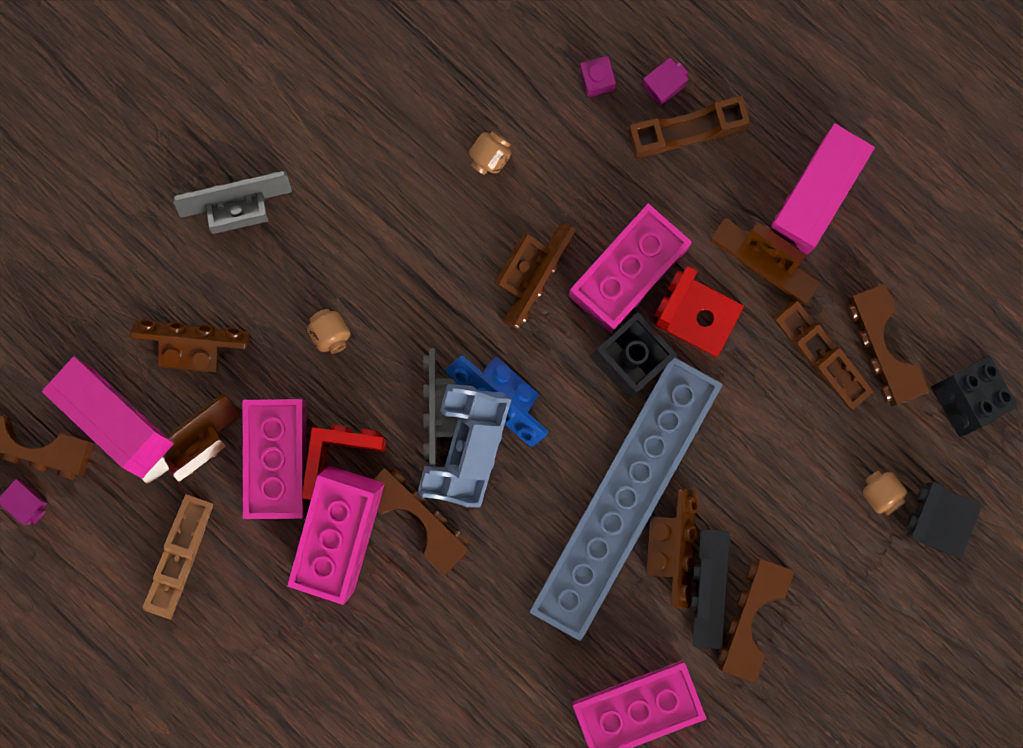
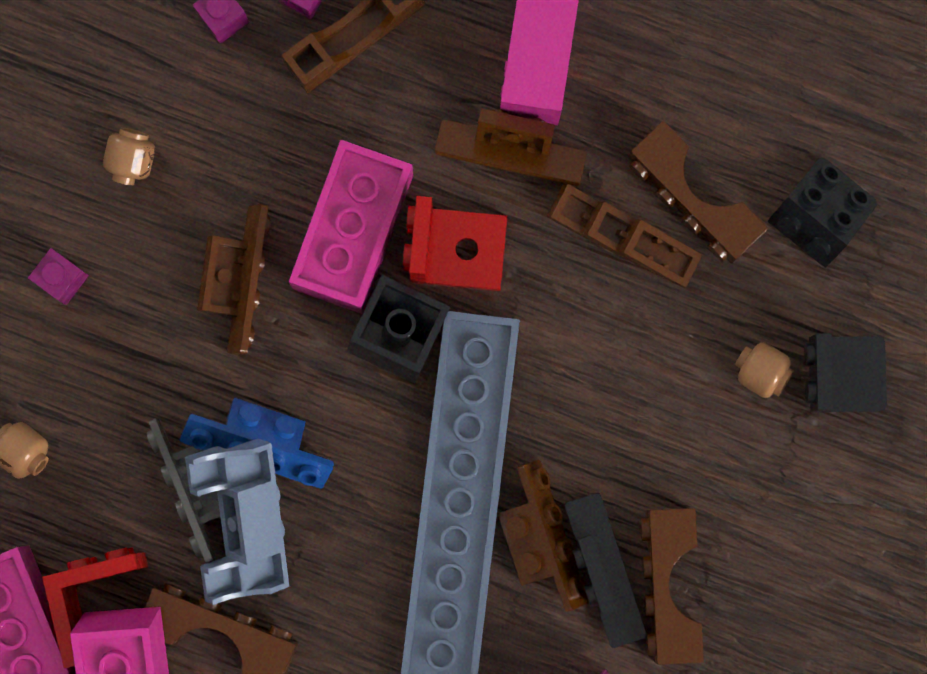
camera: 25 degrees left, 0 degrees up
(405, 218) = (58, 276): none -> magenta brick

